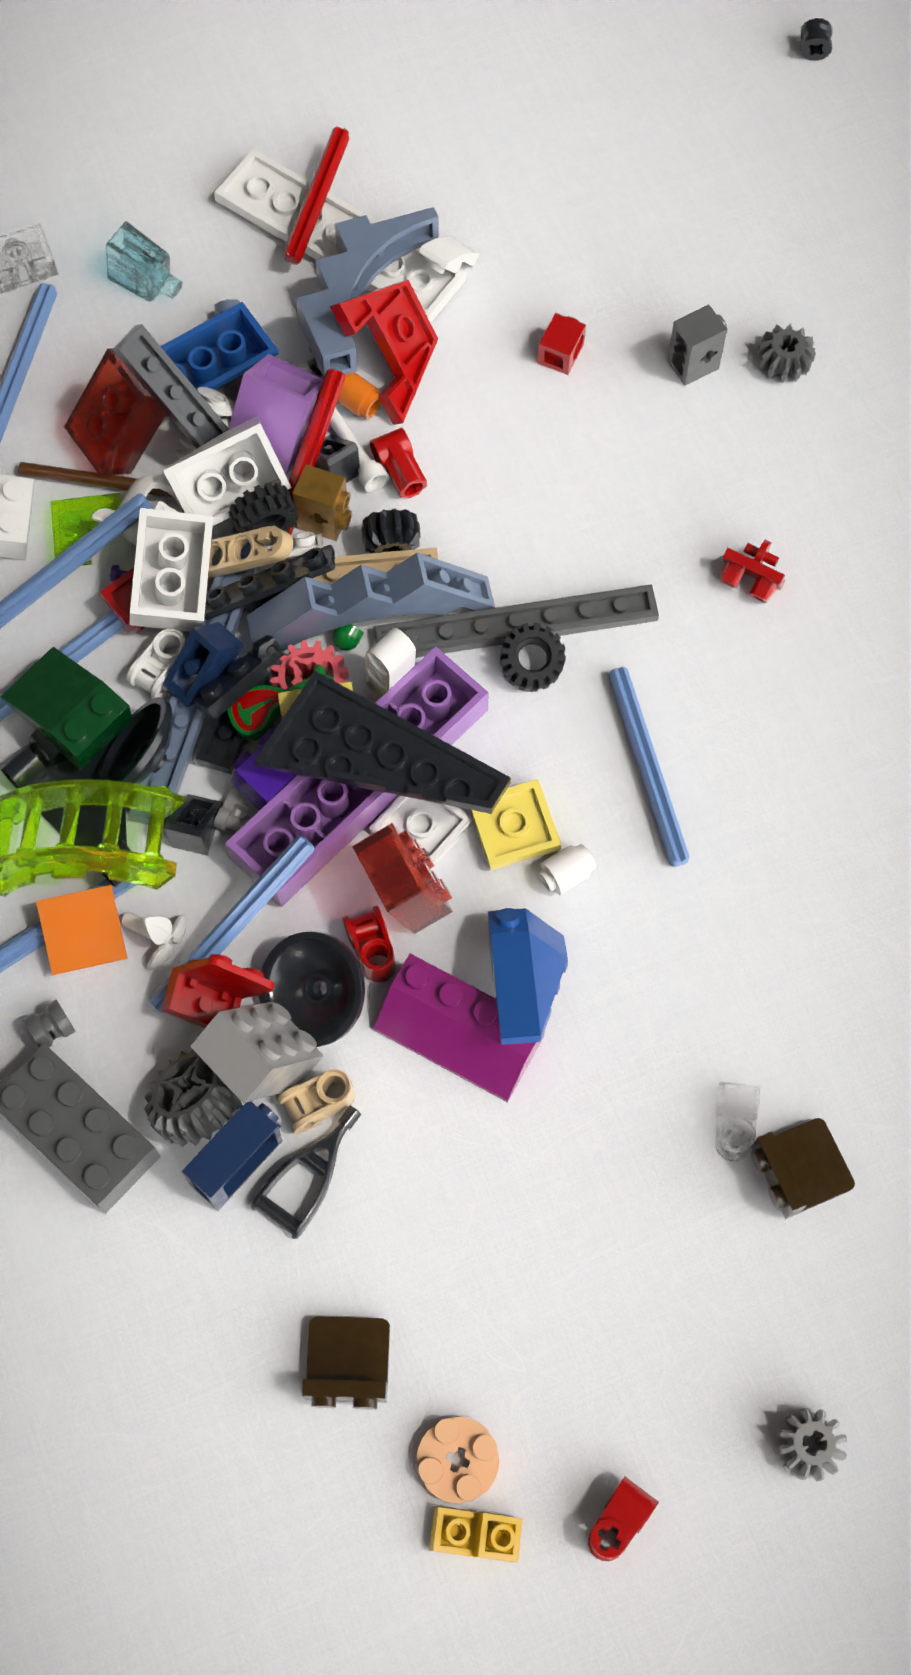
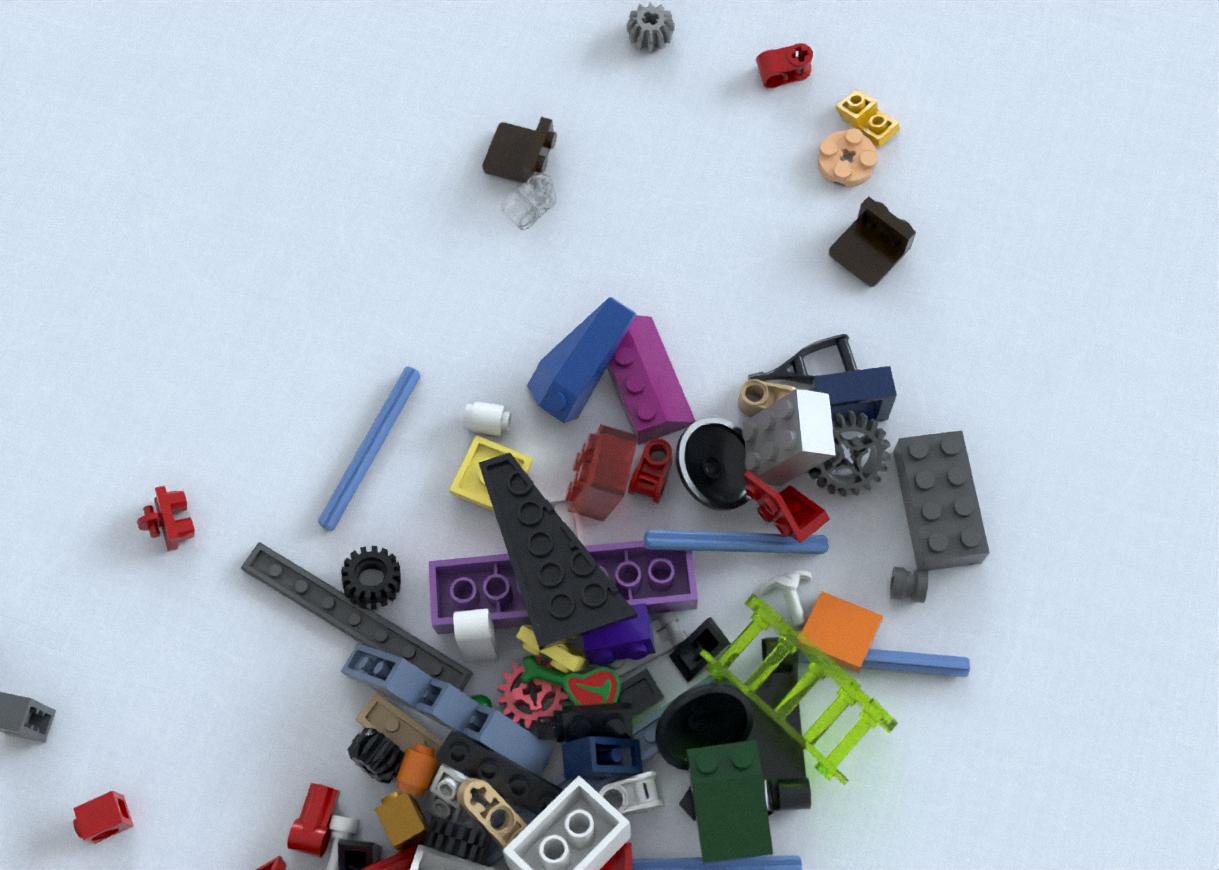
camera: 135 degrees left, 0 degrees up
(347, 542) = (417, 770): none -> orange brick

